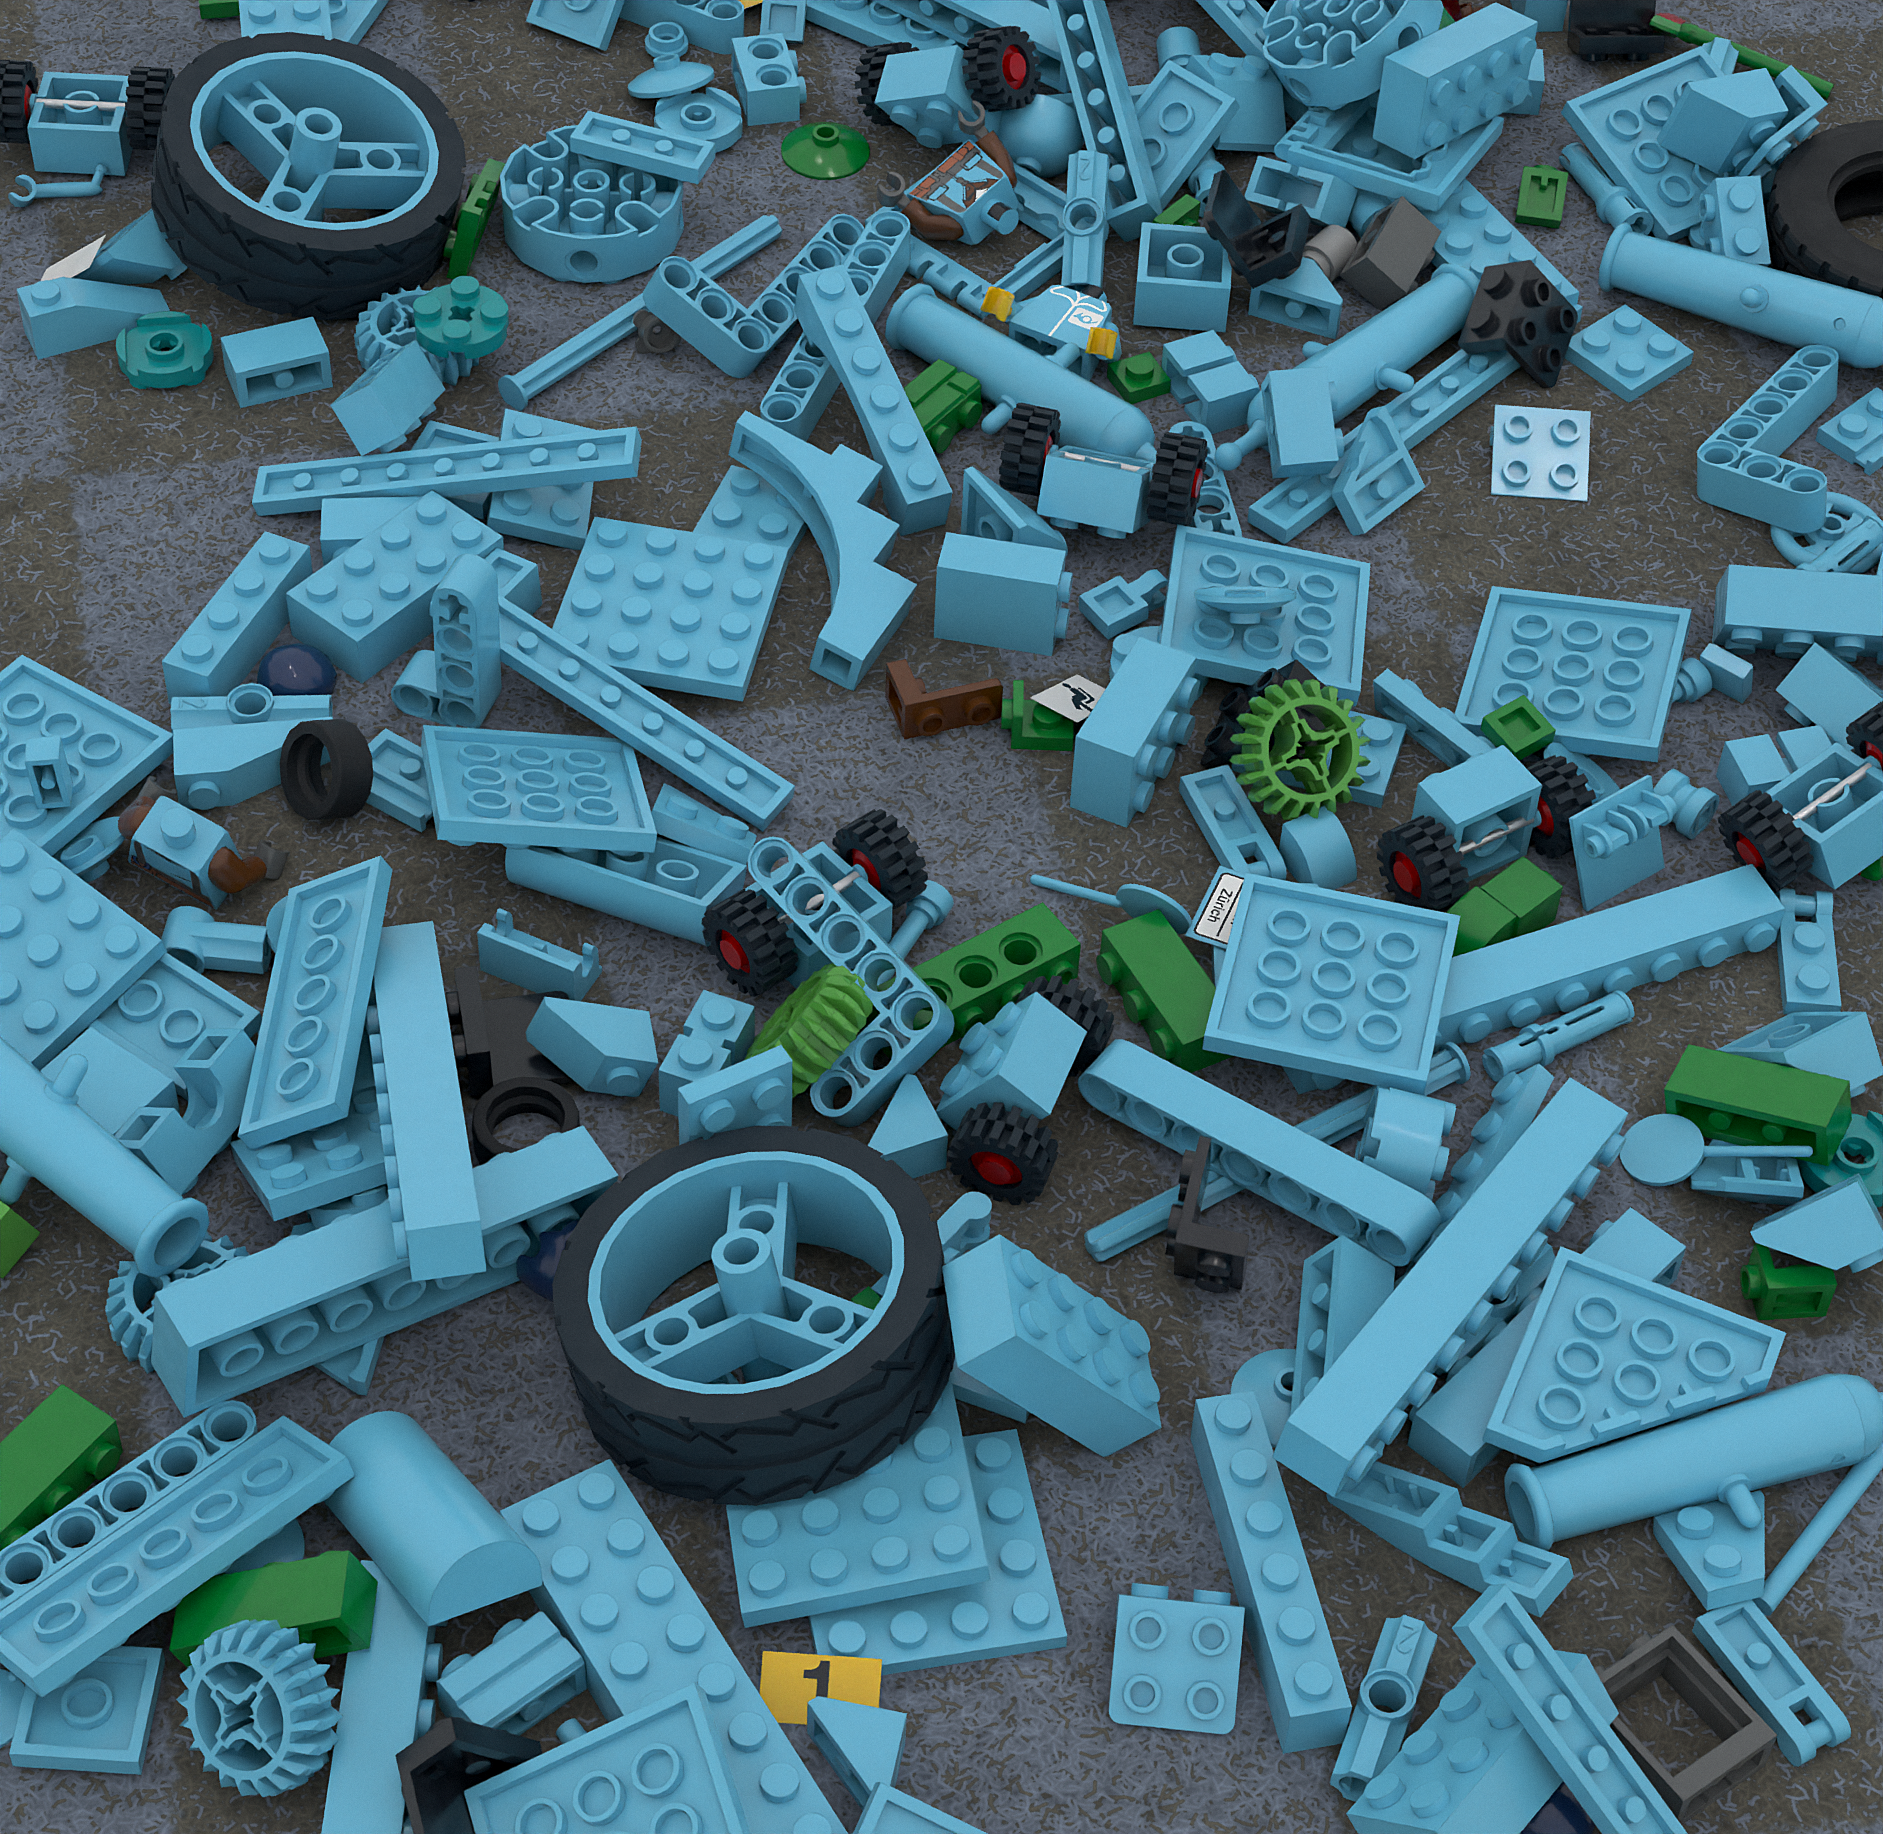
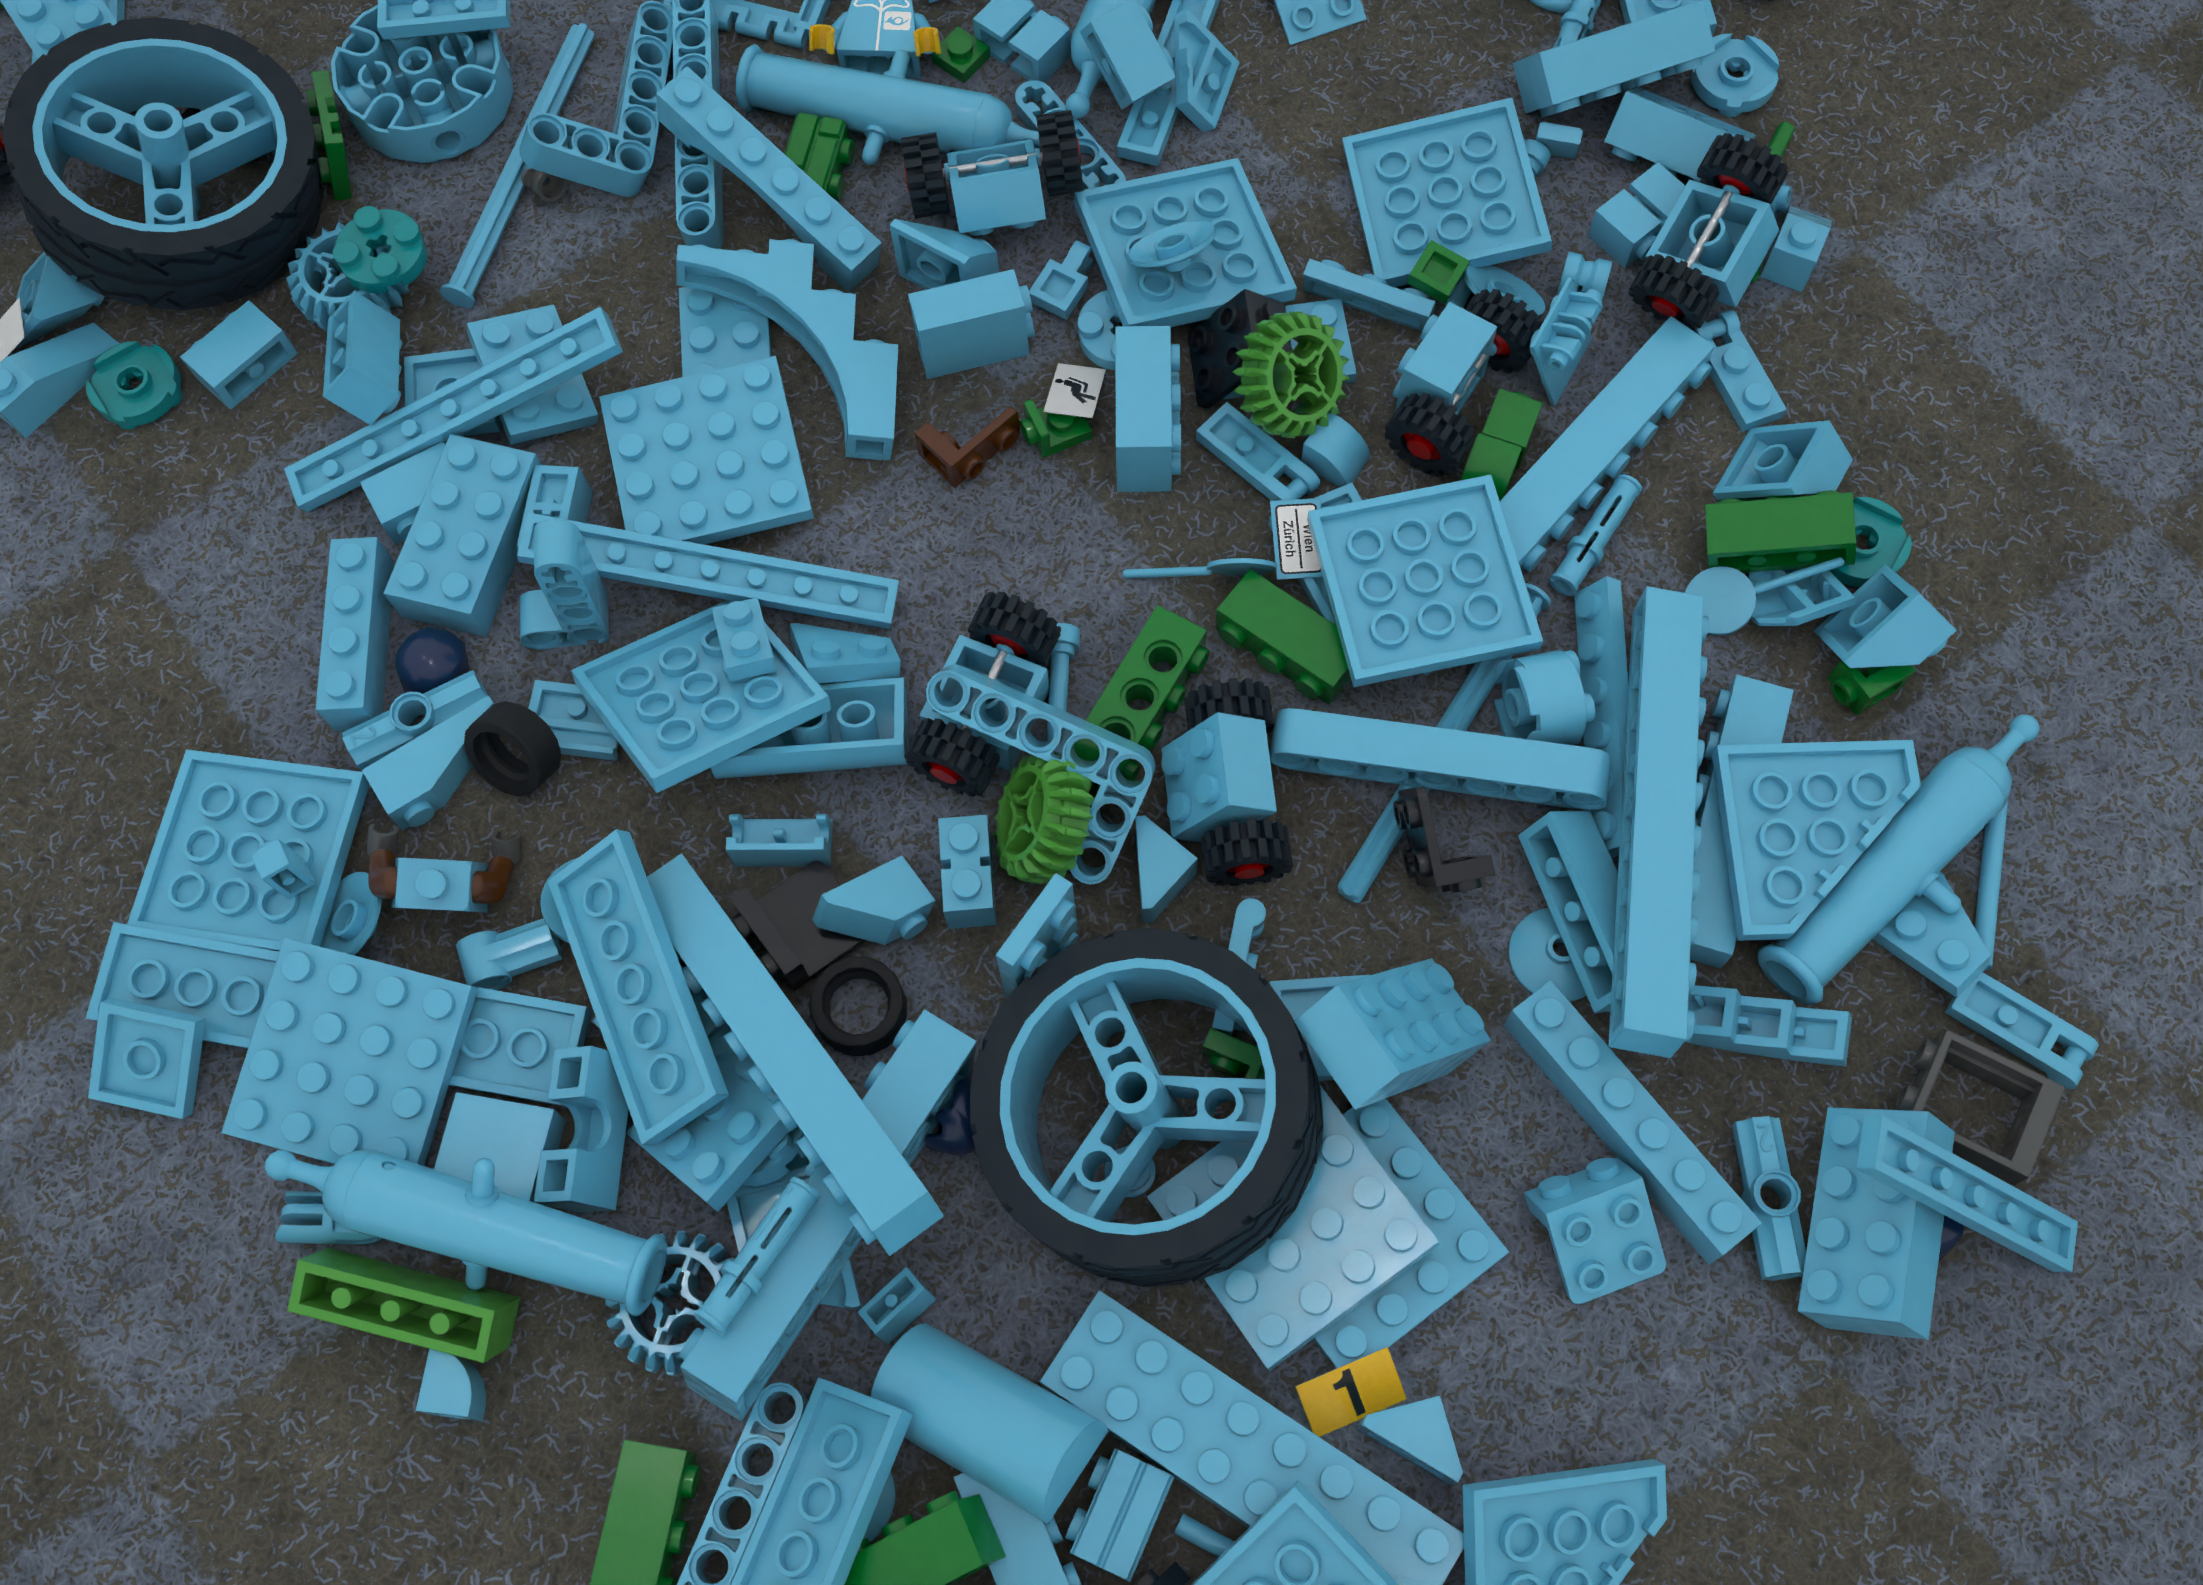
camera: 20 degrees left, 20 degrees up
(264, 1240) = (718, 1308): none -> medium azure pin
(407, 1393) = (896, 1305): none -> medium azure piece
(606, 762) = (743, 639): none -> medium azure plate

